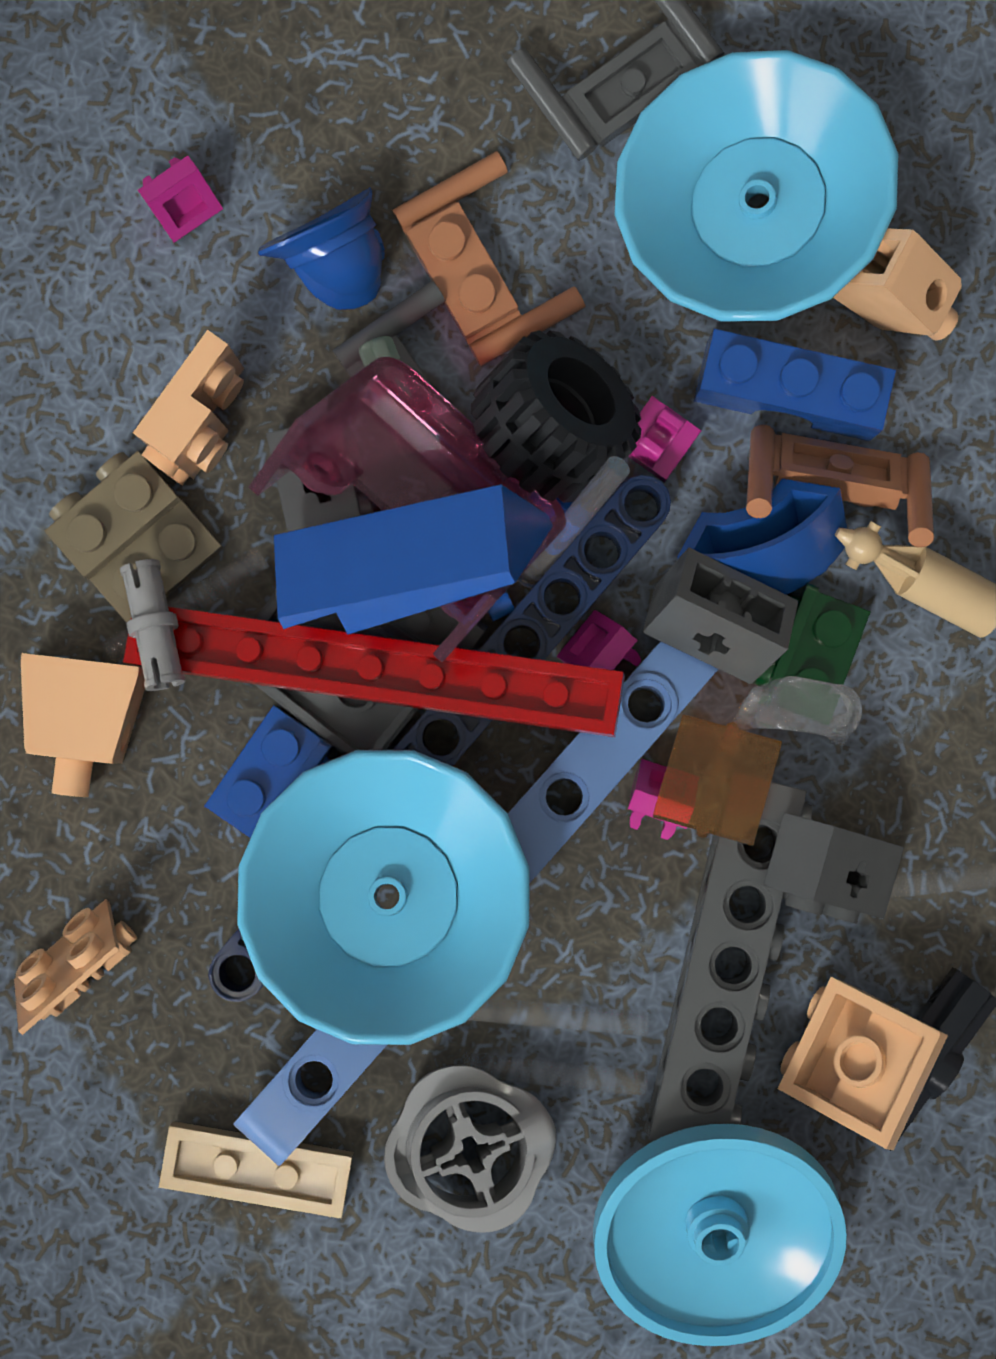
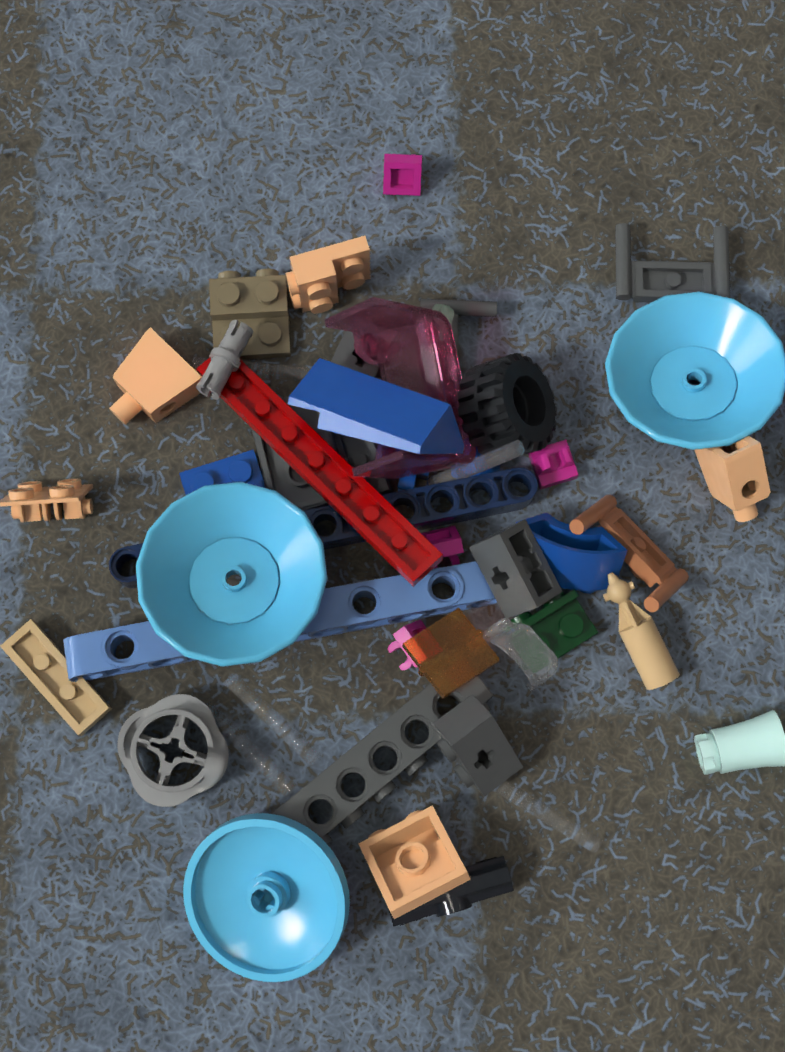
camera: 35 degrees right, 10 degrees down
(335, 254) = (458, 254): blue piece -> none
(465, 271) = (517, 308): nougat plate -> none
(772, 376) = (660, 501): blue arch -> none

